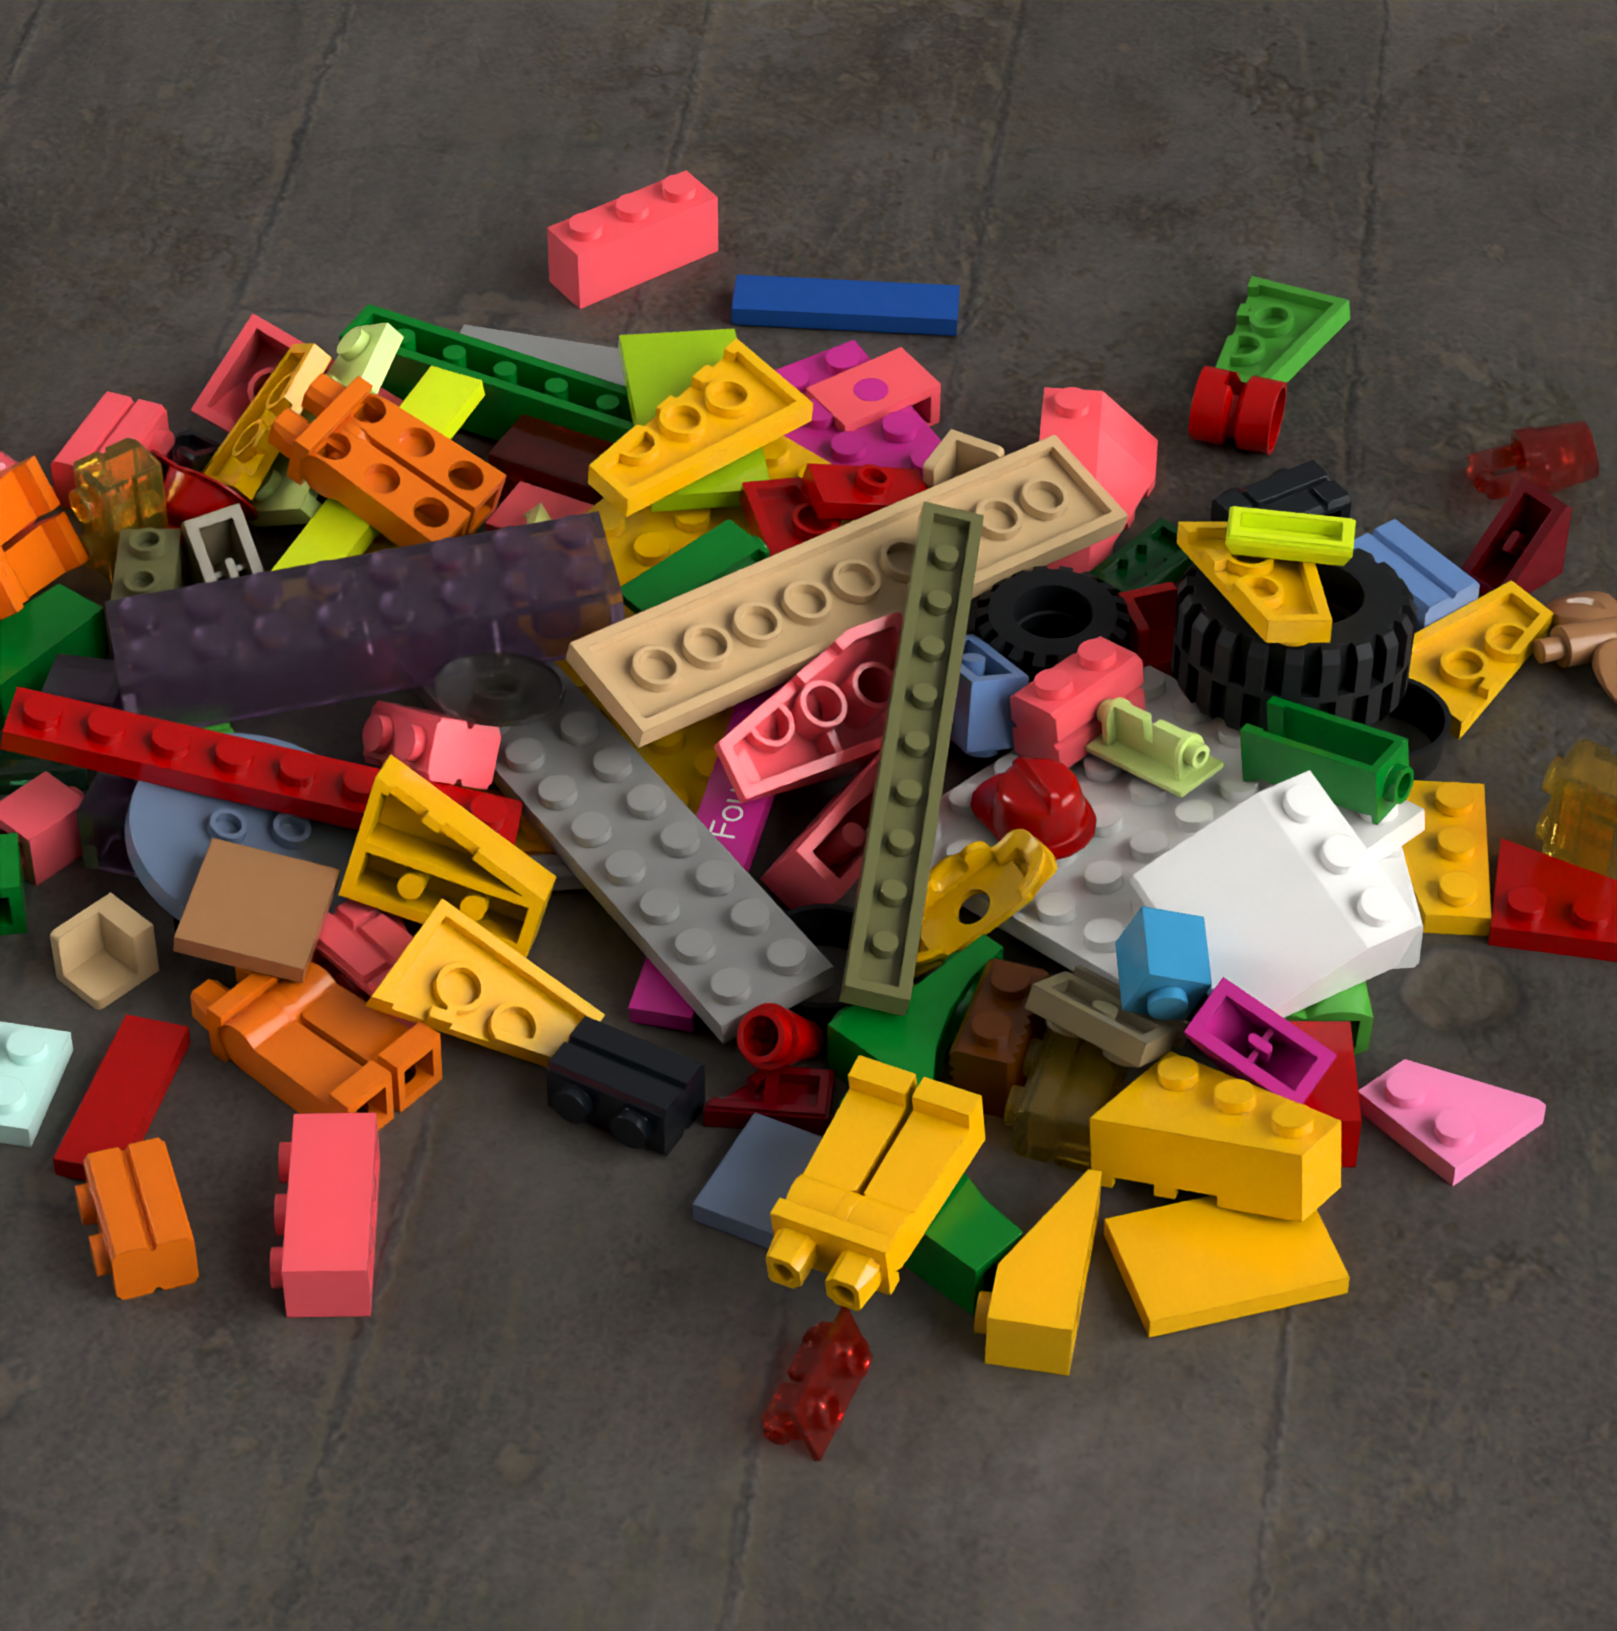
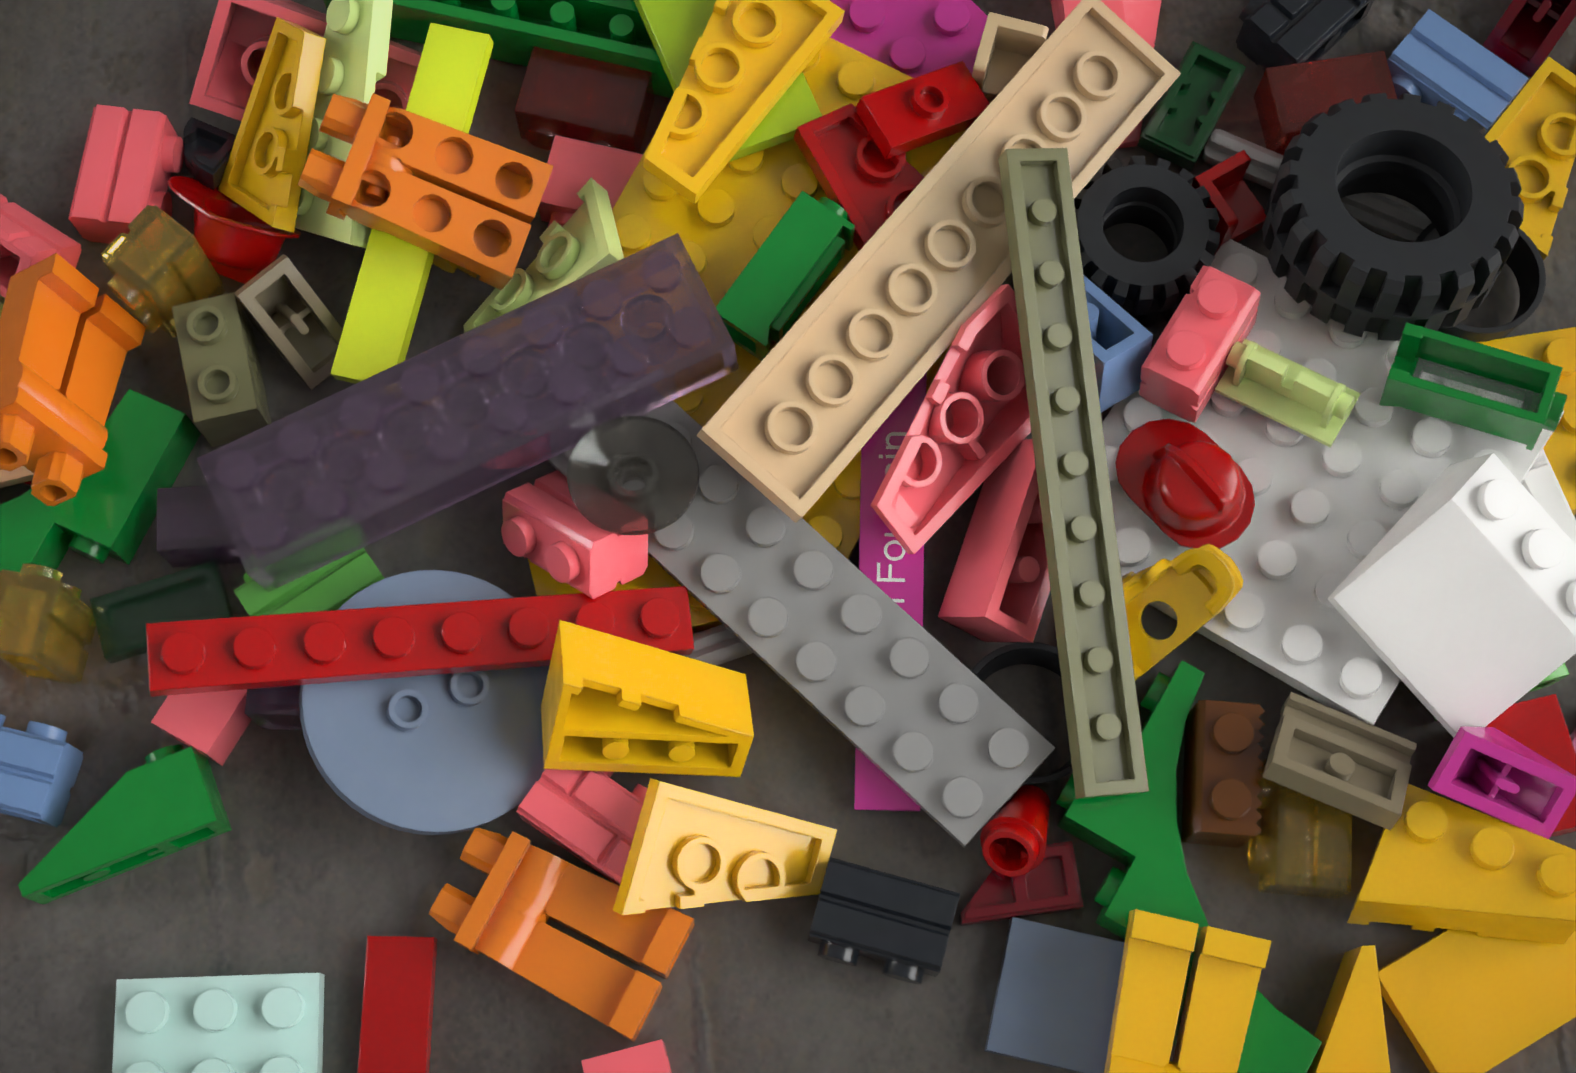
camera: 15 degrees left, 30 degrees up
(104, 951) = (322, 861): tan panel -> none
(256, 910) = (470, 815): medium nougat tile -> none
(1163, 963) = (1394, 712): dark azure brick -> none
(1273, 595) = (1383, 192): yellow wing -> none
(1290, 536) = (1403, 141): neon yellow tile -> none

